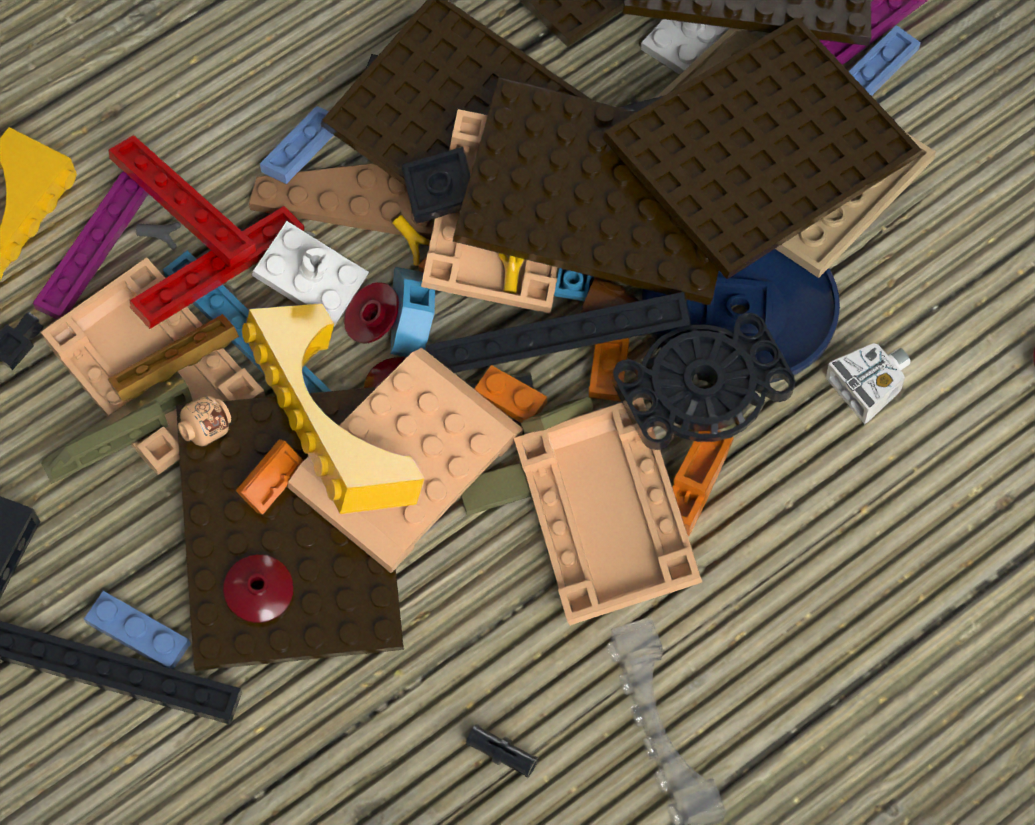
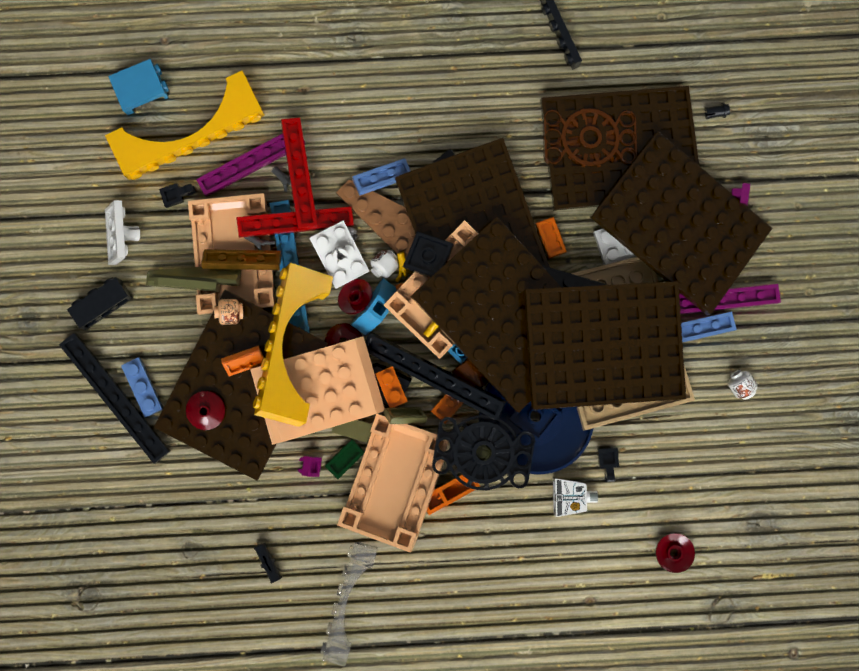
camera: 30 degrees right, 20 degrees up
(180, 323) = (258, 241): none -> dark grey bar
(383, 248) = (384, 264): none -> white head
(470, 574) = (311, 466): none -> magenta tile
(512, 537) = (345, 459): none -> dark green tile
(591, 81) = (551, 237): none -> orange plate
(885, 302) = (609, 460): none -> black plate
(982, 100) = (742, 384): none -> white head

